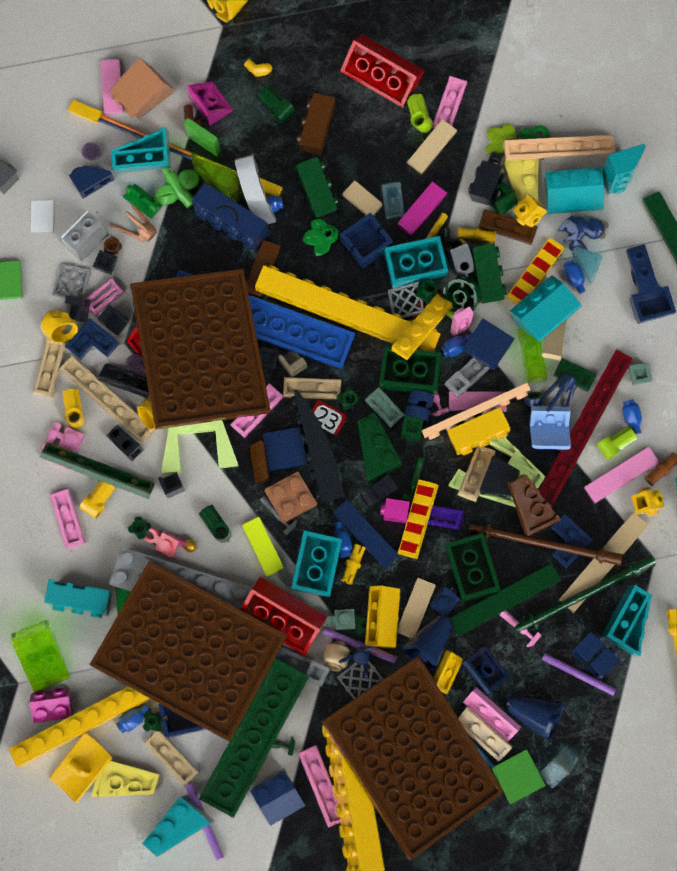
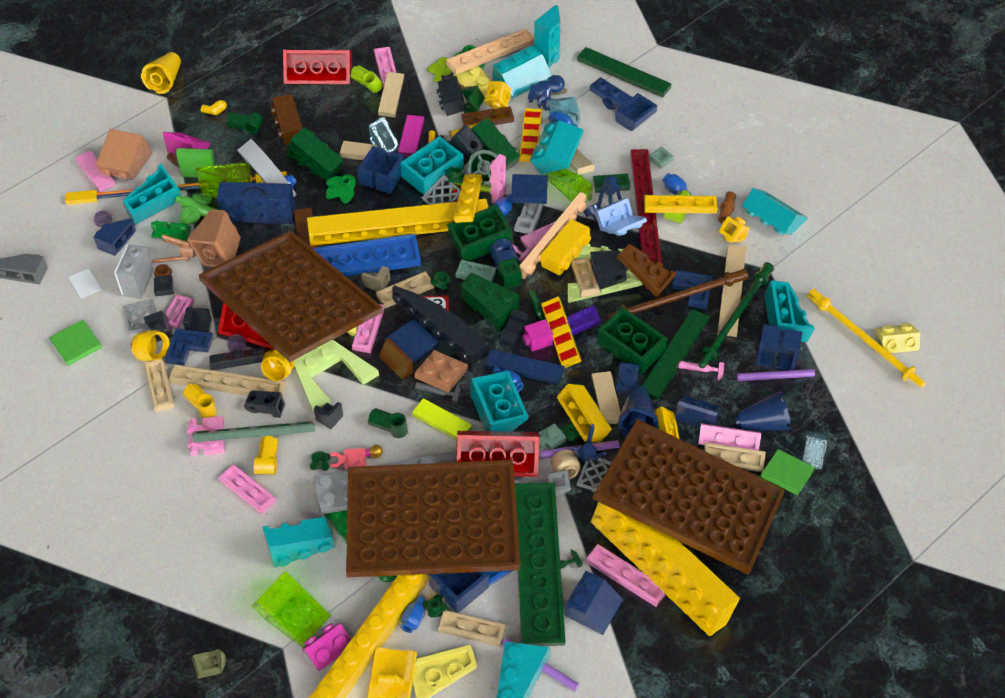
camera: 35 degrees left, 25 degrees down
(172, 242) = (215, 239): none -> nougat slope
(353, 564) = (530, 392): yellow pin -> none
(615, 446) = (680, 204): none -> yellow tile
(621, 475) = (696, 232): bright pink tile -> none

